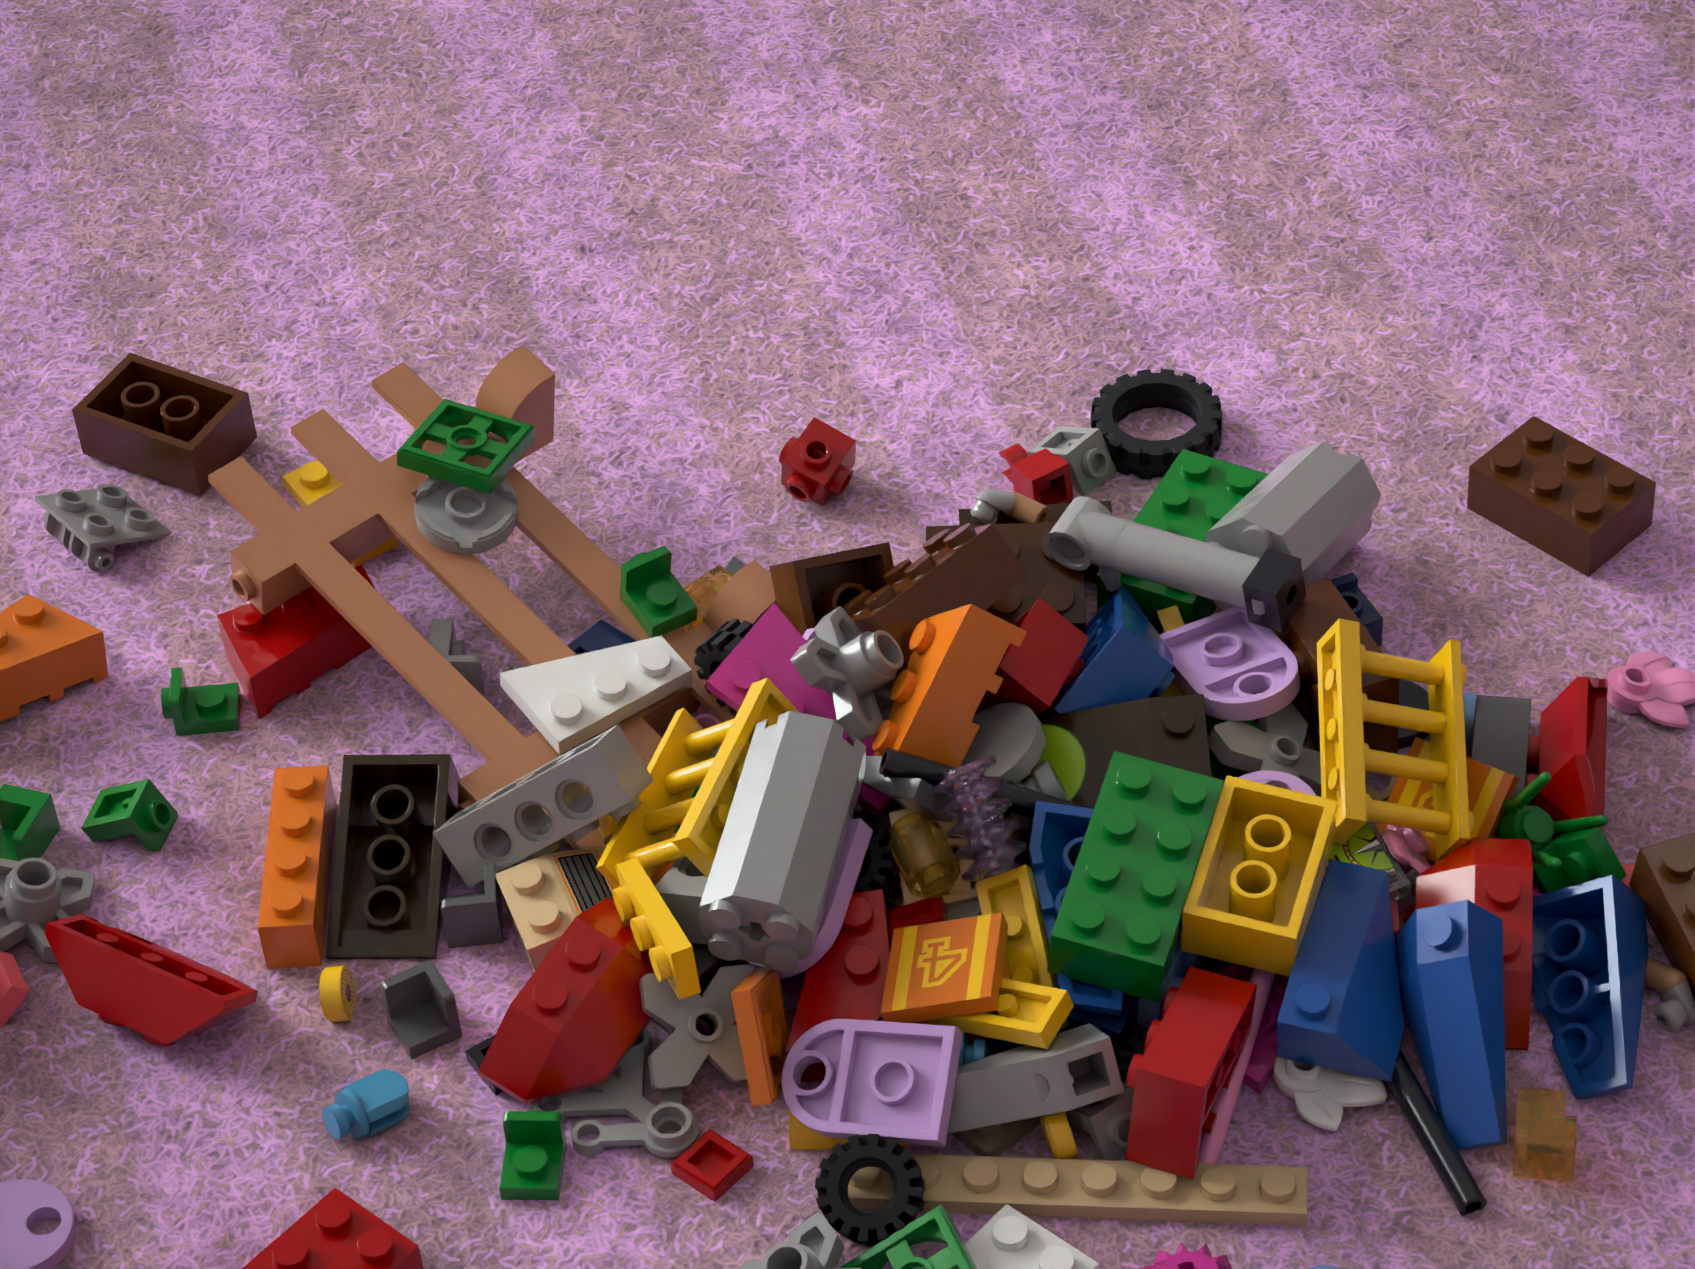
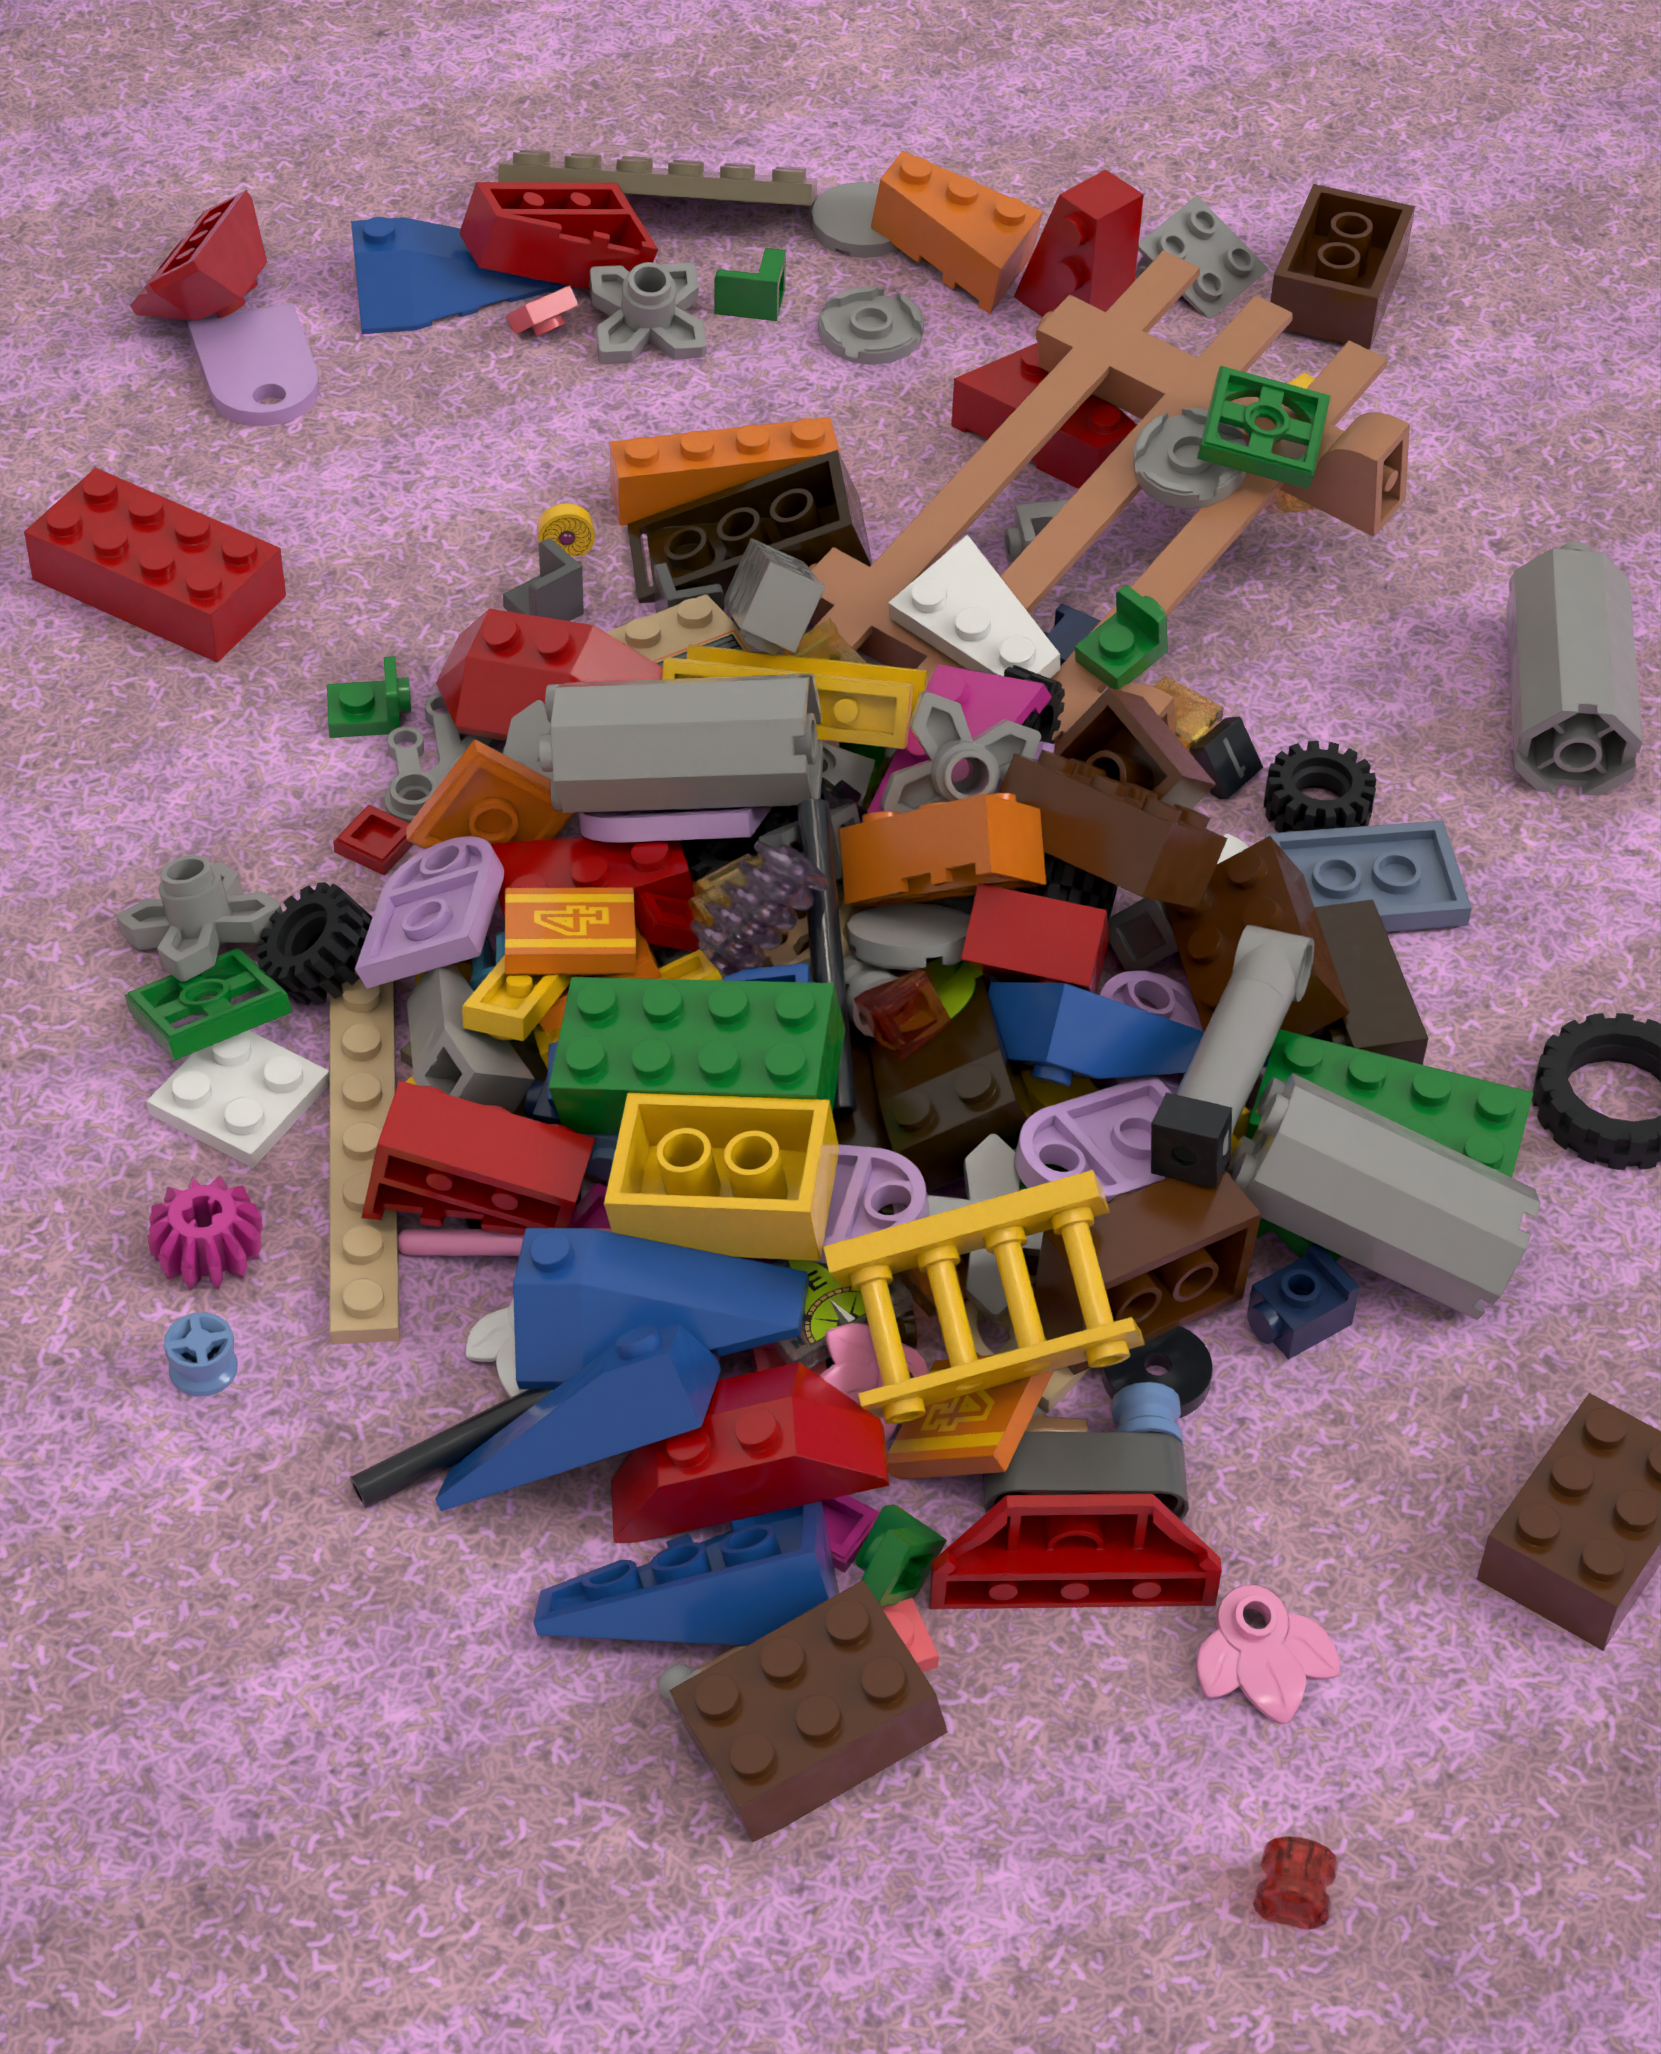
camera: 75 degrees right, 5 degrees up
(102, 766) = (870, 340): none -> light grey tile
(121, 565) = (1085, 246): none -> red wedge
(129, 810) = (784, 359): green bracket -> none
(142, 982) = (565, 395): red wedge -> none
(201, 707) = (940, 361): green bracket -> none
(368, 1105) = (423, 577): dark azure arm -> none
(656, 929) = (524, 702): yellow plate -> none
(726, 361) = (1573, 671): none -> light grey brick
(807, 518) = (1319, 770): none -> black tyre
(817, 463) = (1432, 775): red brick -> none
(902, 502) = (1399, 866): none -> sand blue plate
(1012, 504) = (1379, 937): arm -> none
(1039, 476) = (1474, 983): red piece -> none
(1078, 766) = (903, 1013): none -> clear red slope
(1085, 453) = (1529, 1015): light grey bracket -> none
(1537, 825) = (940, 1499): green plant -> none
(1544, 1136) = (457, 1544): clear yellow brick -> none

